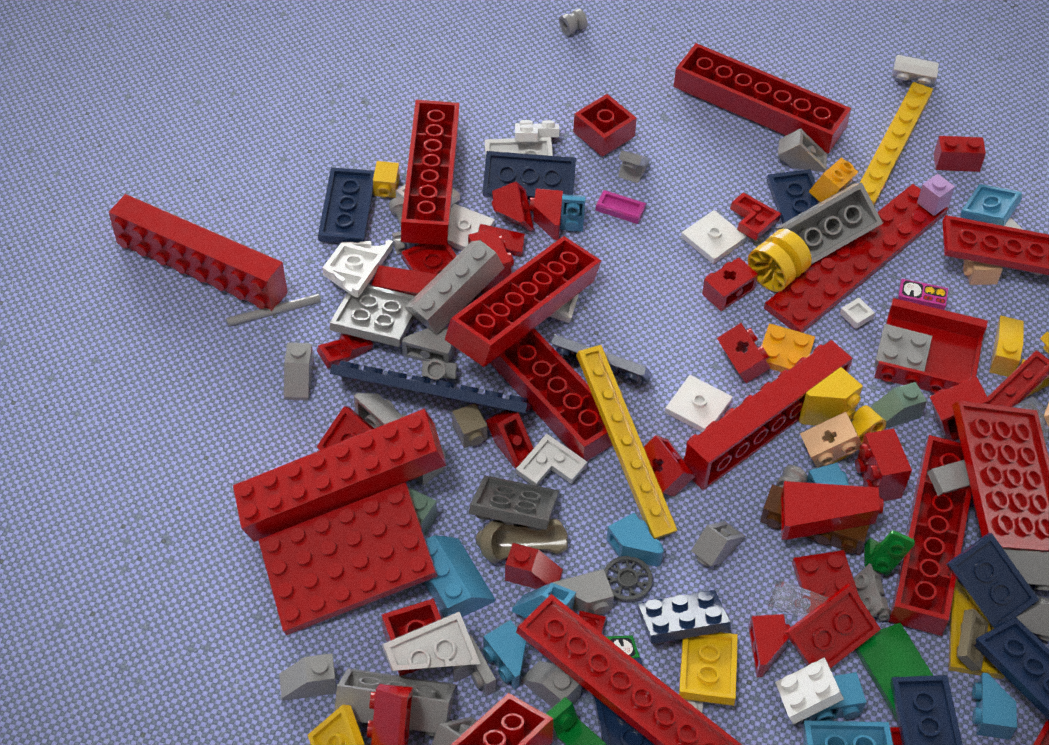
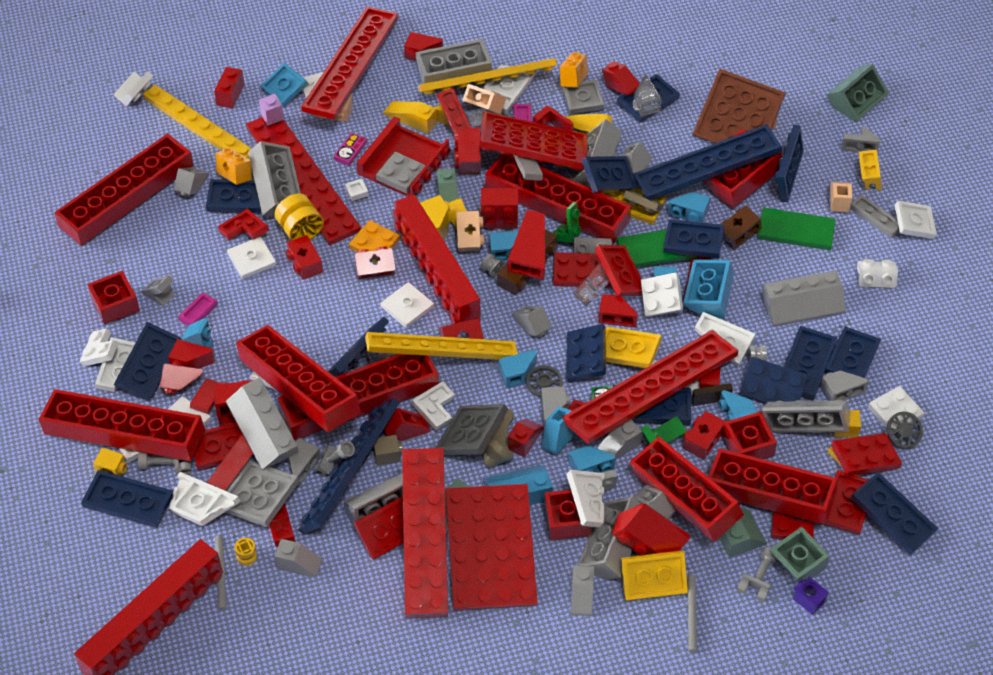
camera: 75 degrees left, 0 degrees up
(298, 322) = (245, 551): none -> yellow wheel

